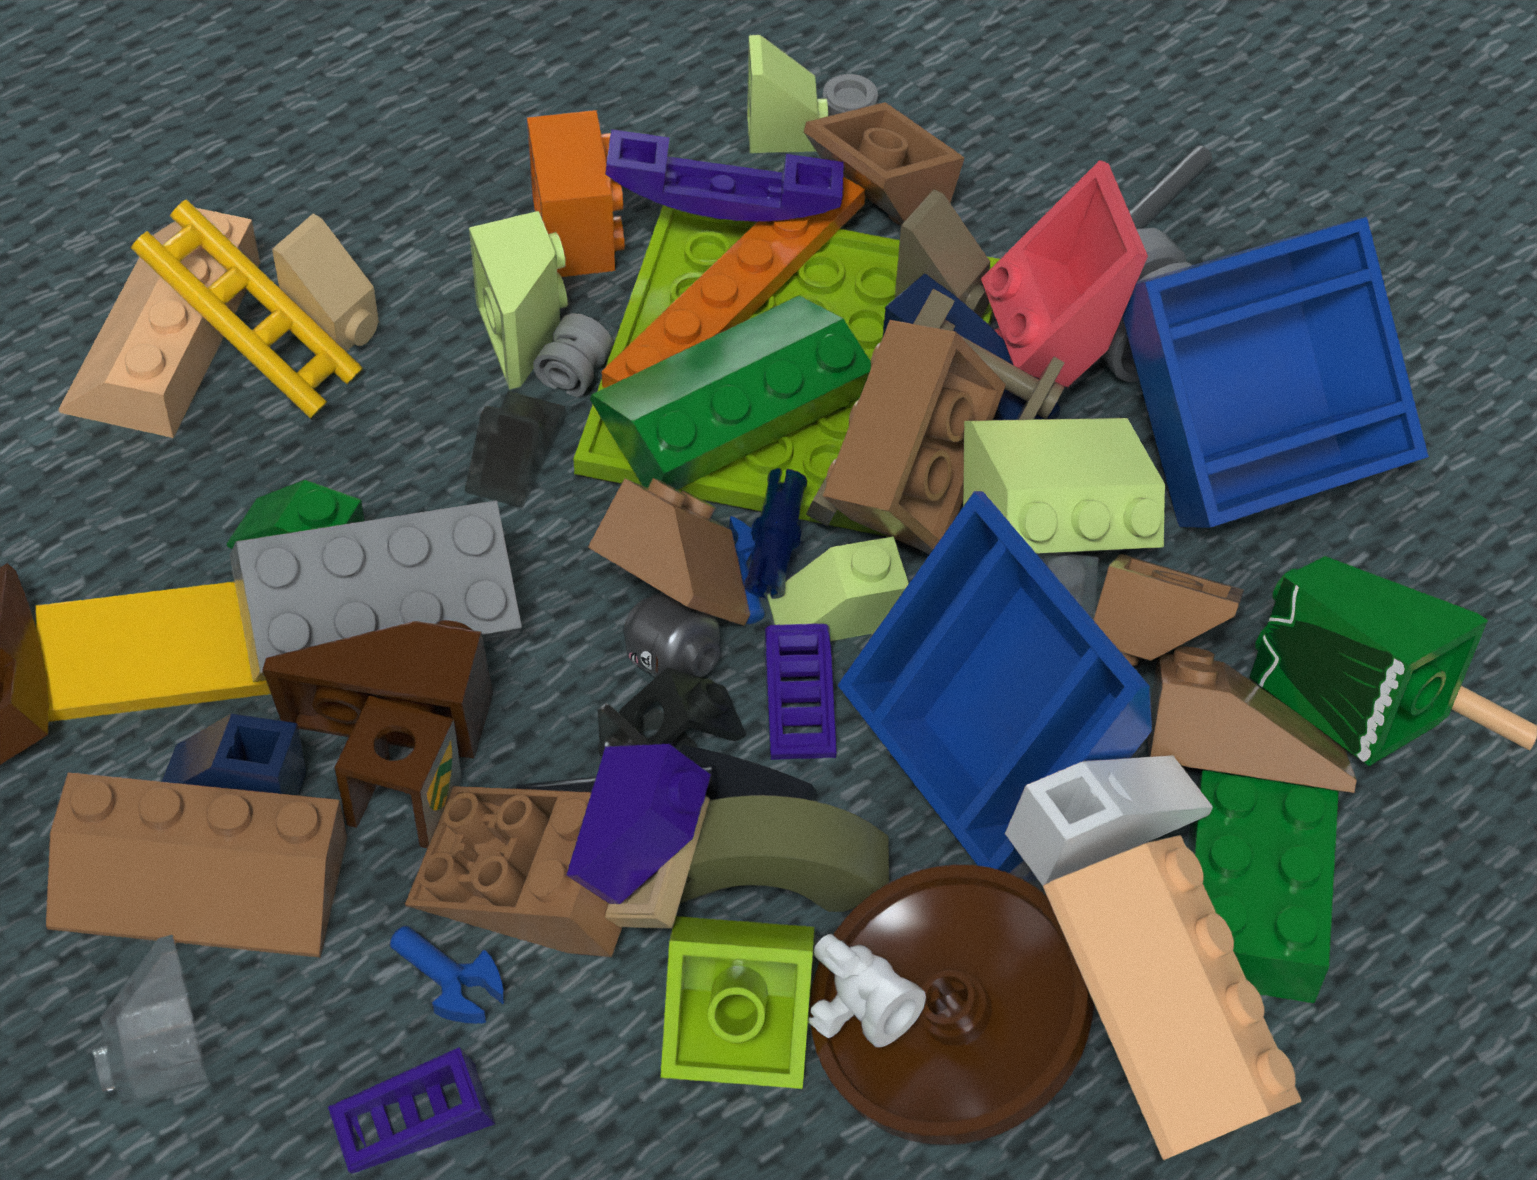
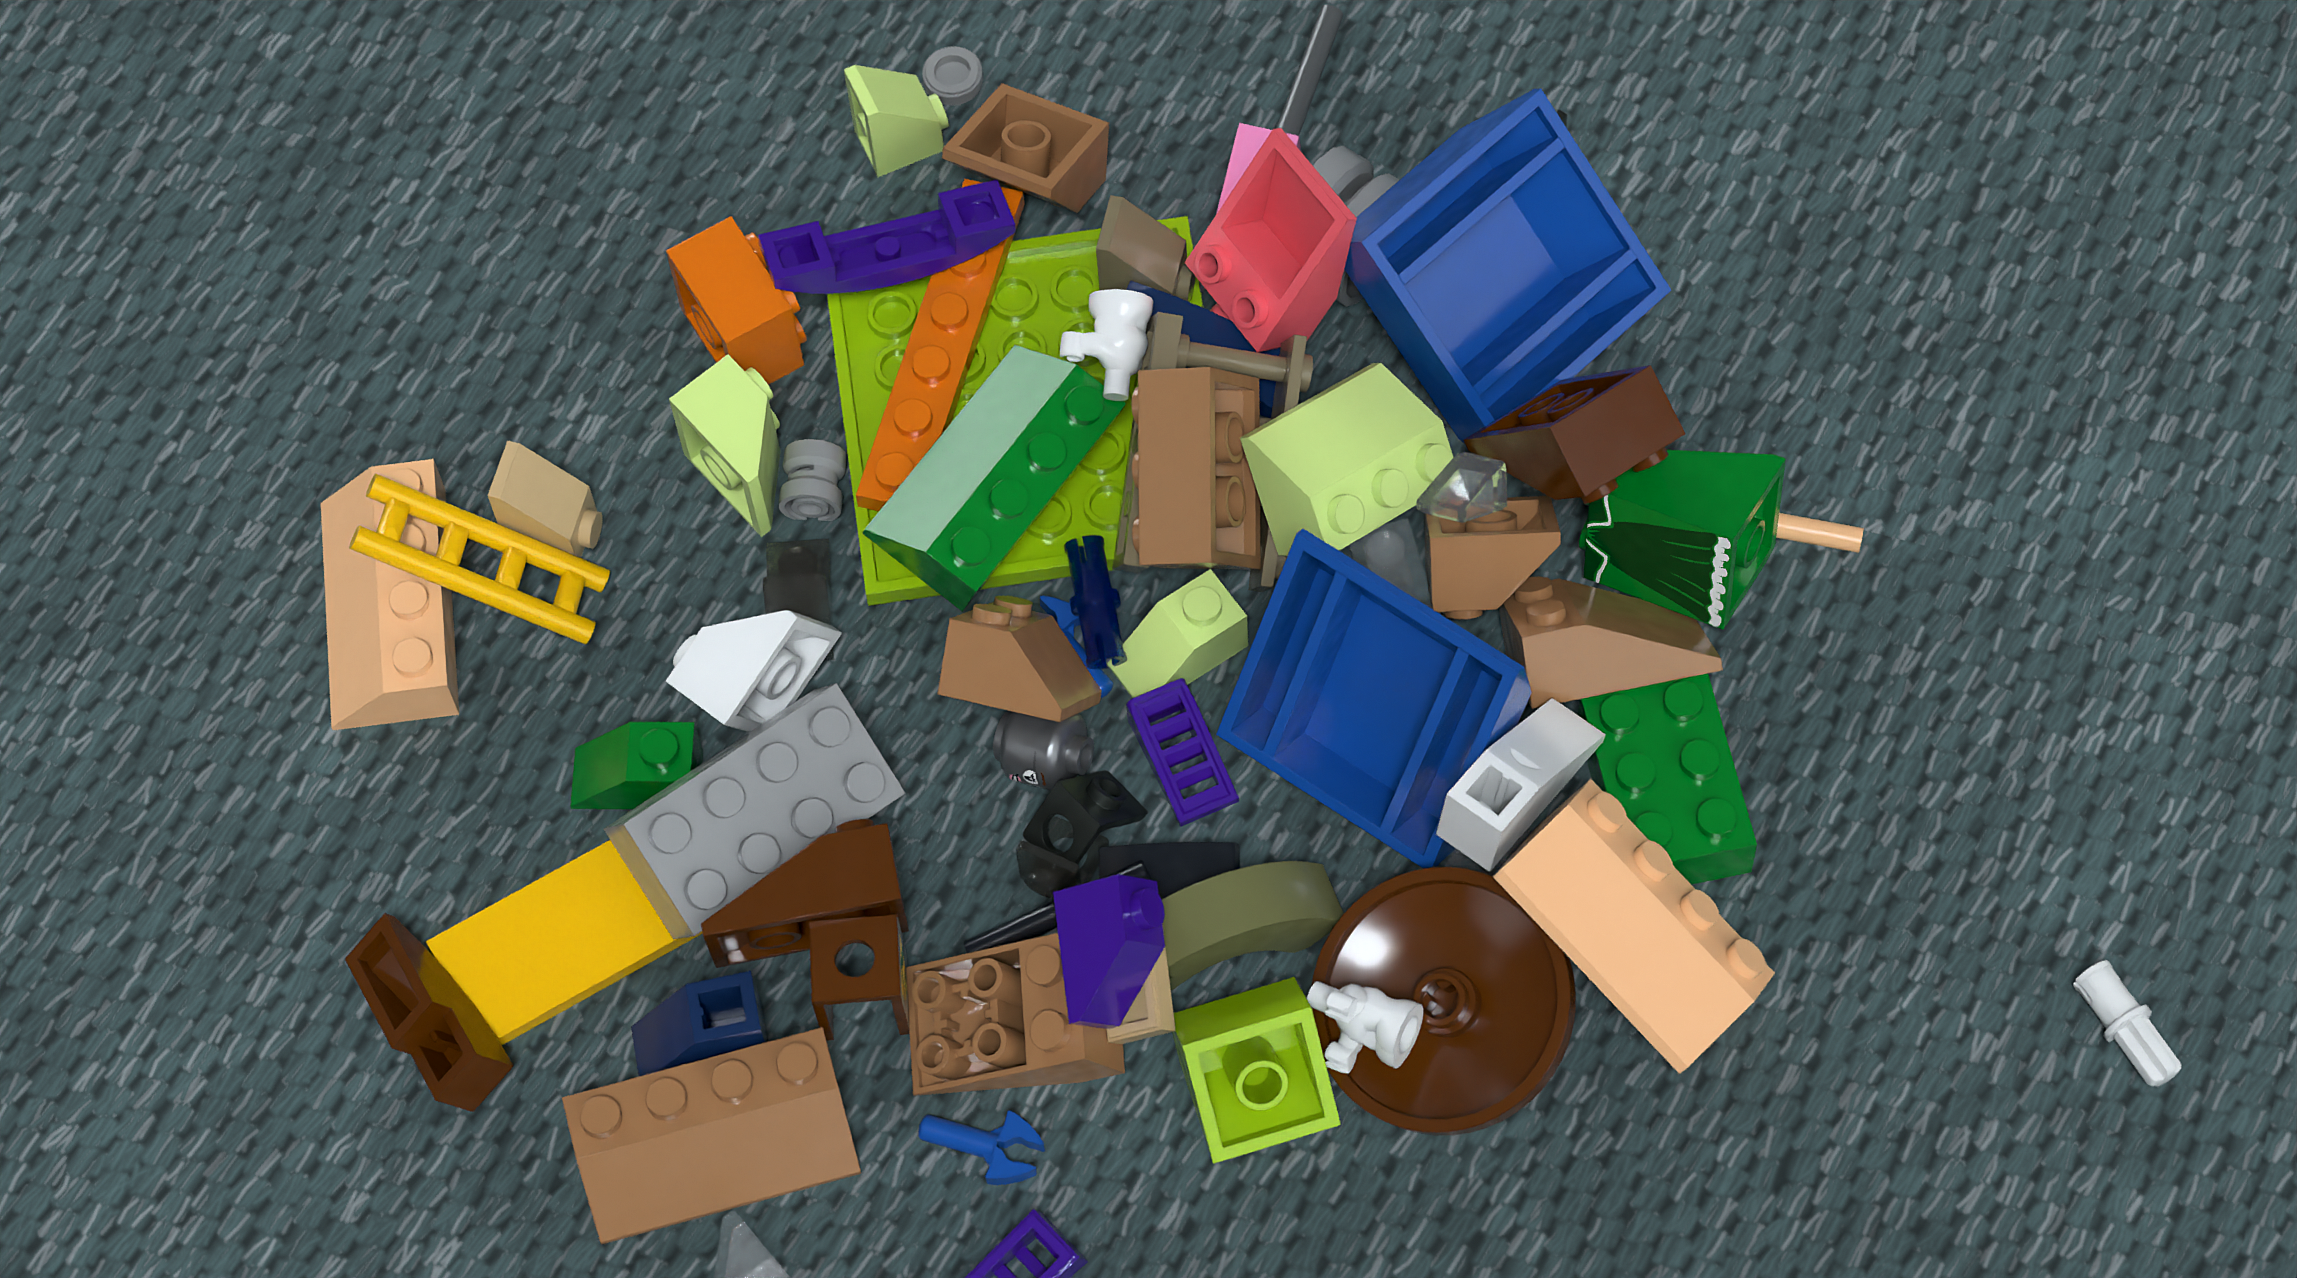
camera: 15 degrees left, 10 degrees up
(436, 462) = (751, 665): none -> white slope
(895, 295) = (1117, 338): none -> white piece
(1165, 548) = (1466, 489): none -> clear slope
(1299, 526) = (1583, 433): none -> reddish brown slope

